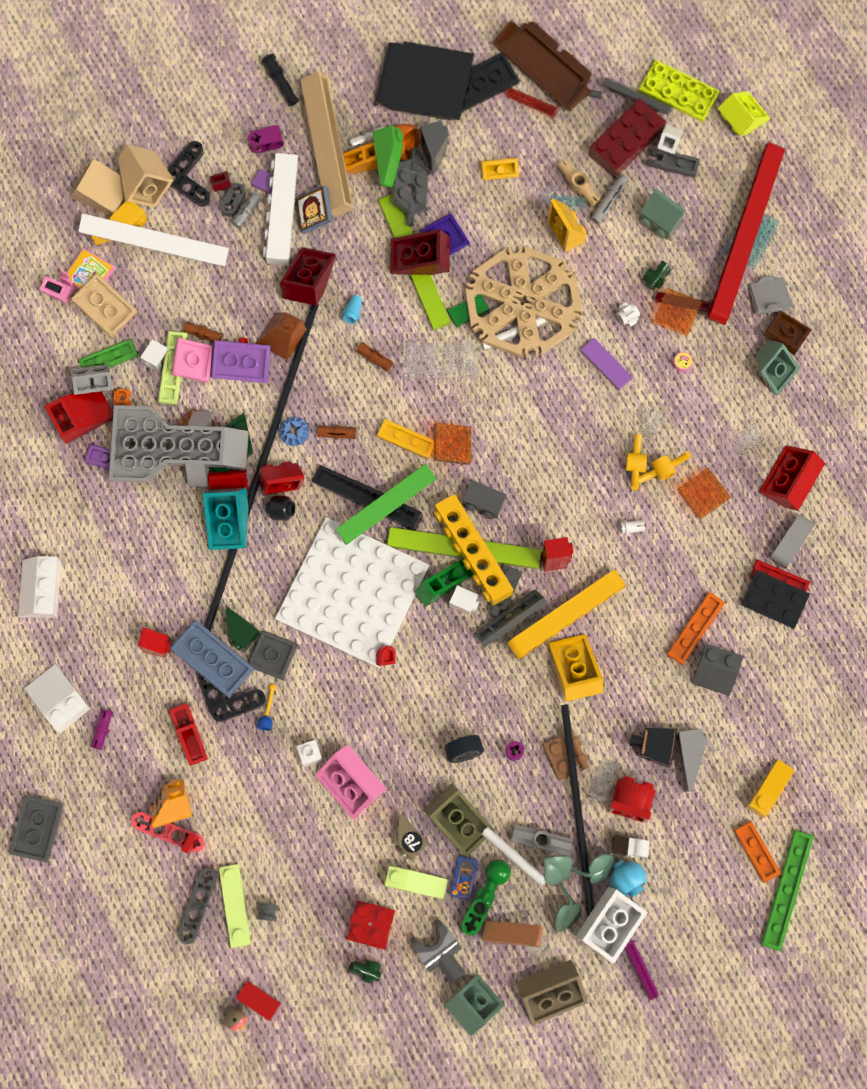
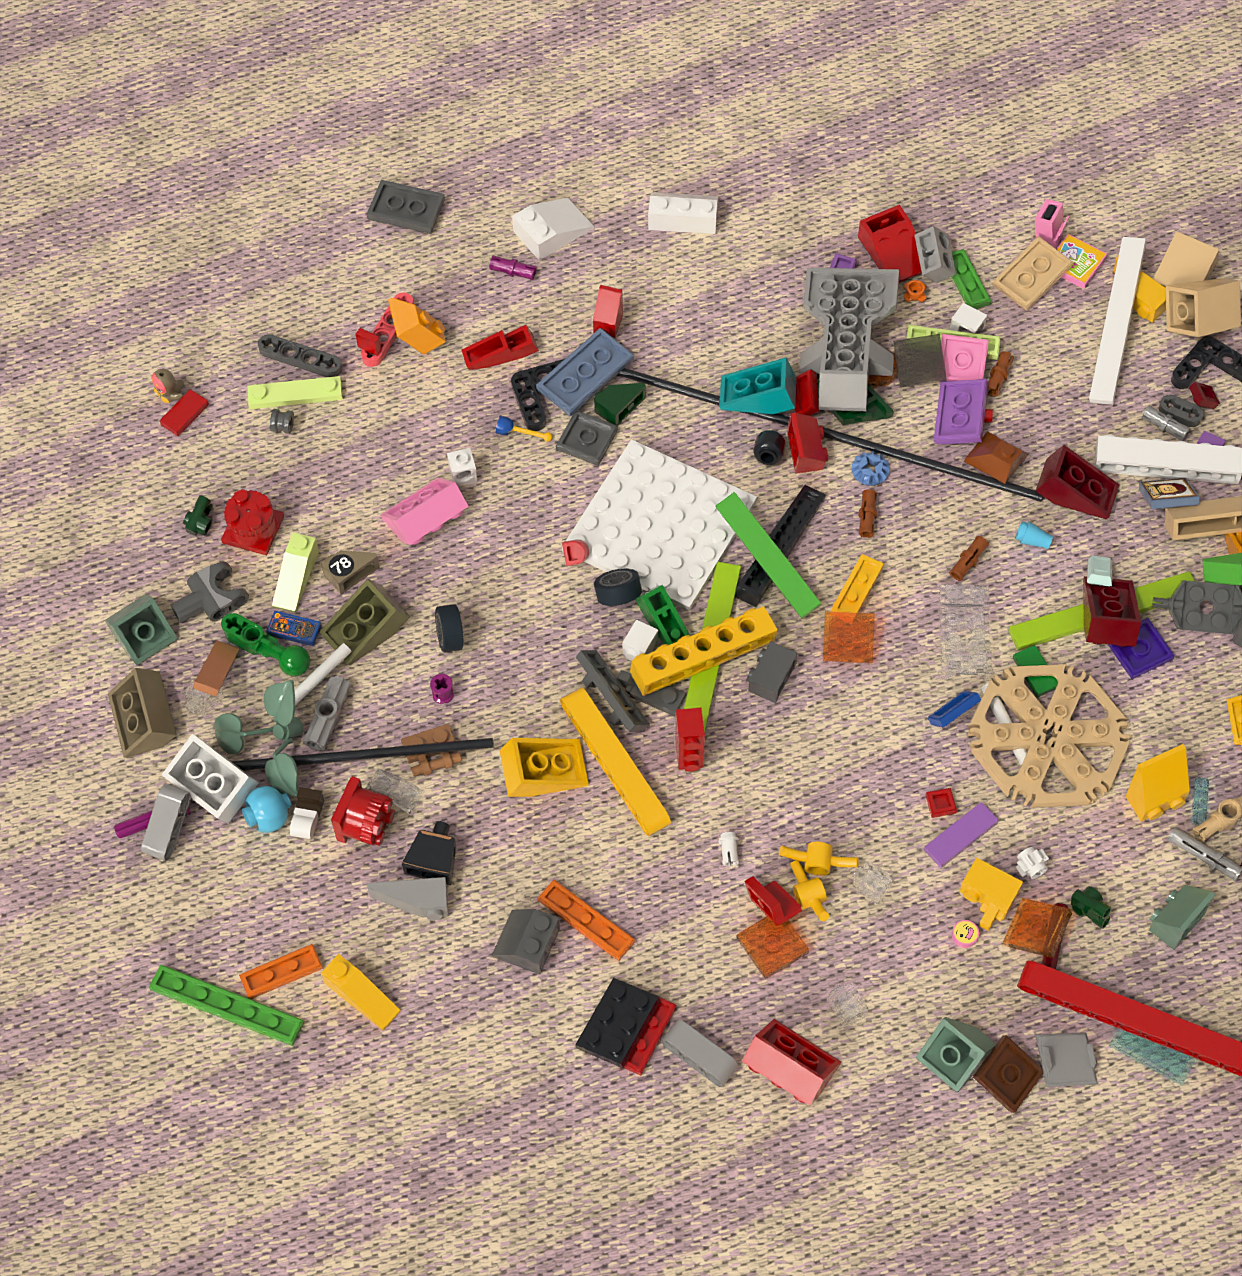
camera: 95 degrees right, 15 degrees down
(196, 391) = (919, 360): none -> clear smoke tile
(384, 261) = (1099, 571): none -> light aqua tile
(410, 619) = (617, 587): none -> black wheel
(506, 367) = (954, 708): none -> blue tile
(581, 378) = (941, 802): none -> red tile
(650, 955) = (165, 822): none -> light grey beam
(651, 342) = (991, 888): none -> yellow hinge
(673, 492) = (772, 900): none -> red panel

